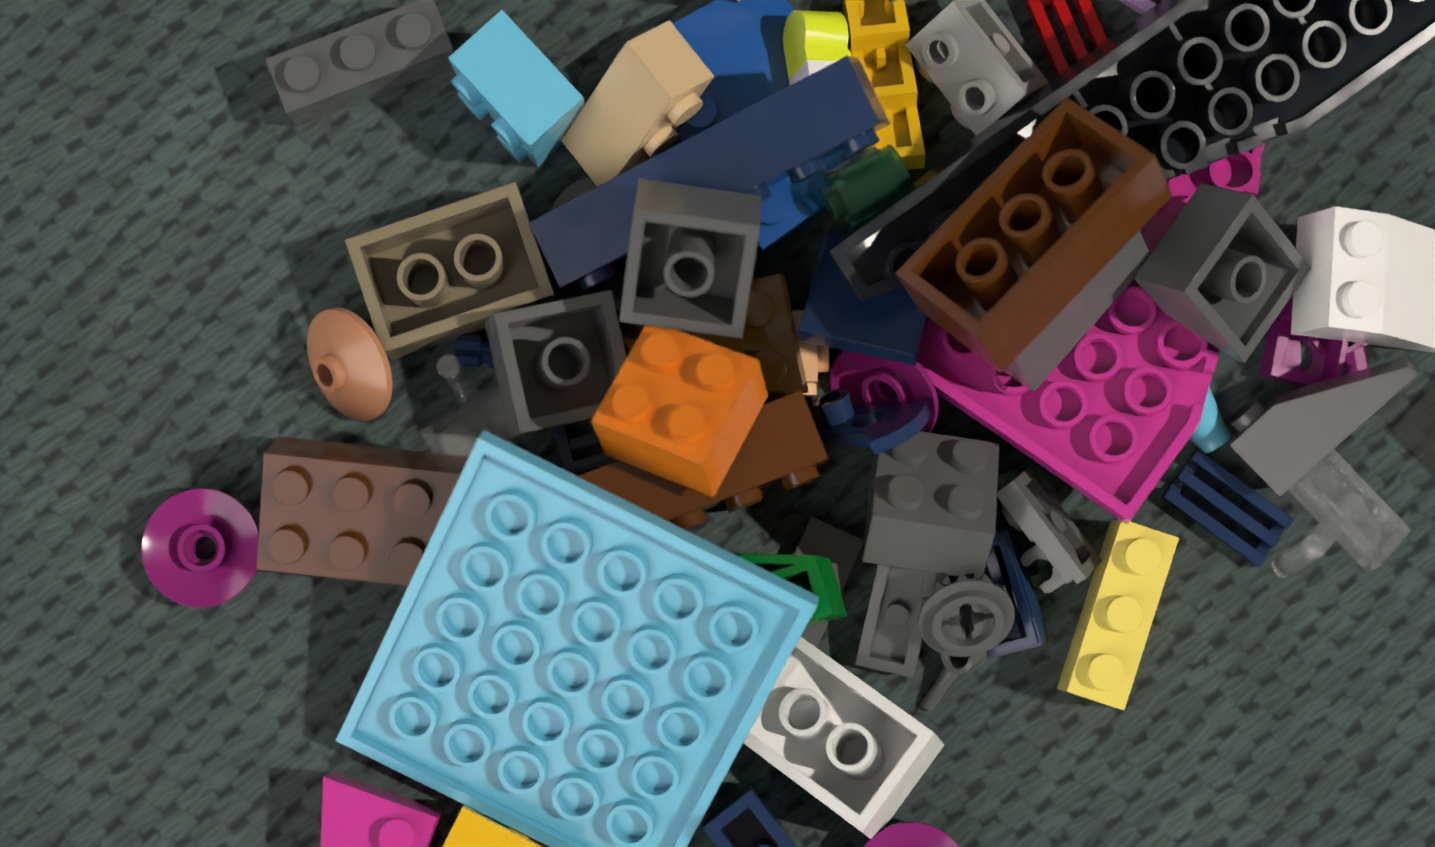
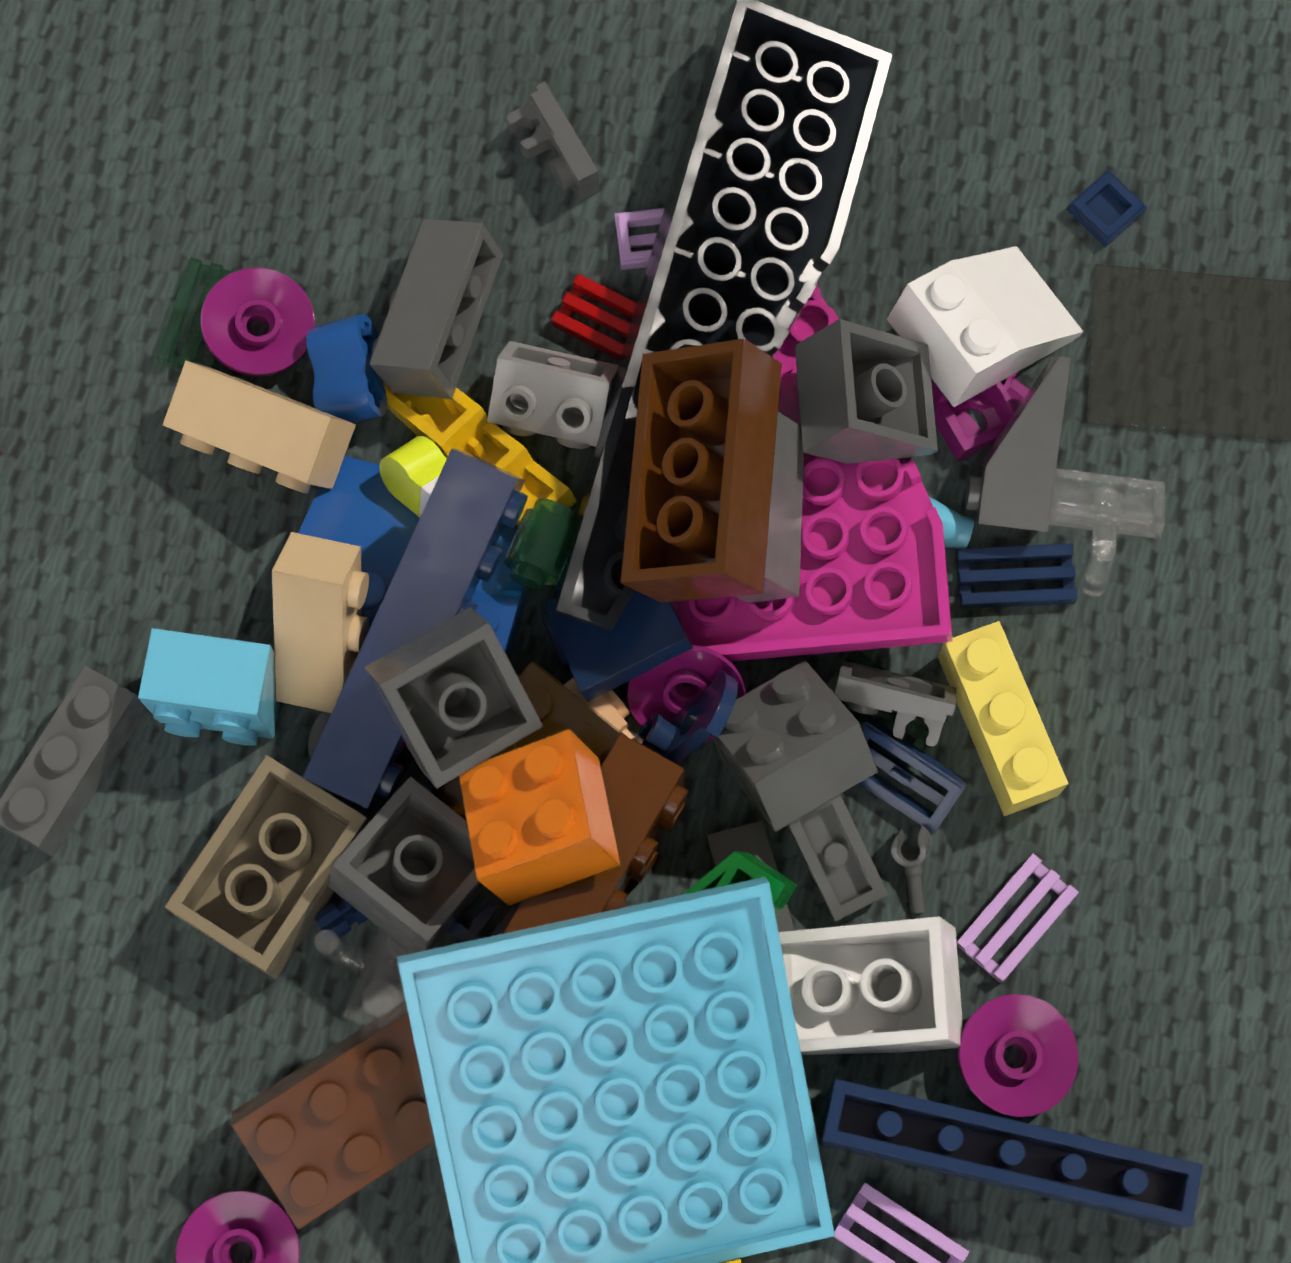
camera: 35 degrees left, 10 degrees down
(349, 364) = (244, 1006): nougat dish -> none
(989, 621) = (911, 805): dark grey gear -> none
(1049, 768) = (1049, 879): none -> lavender tile

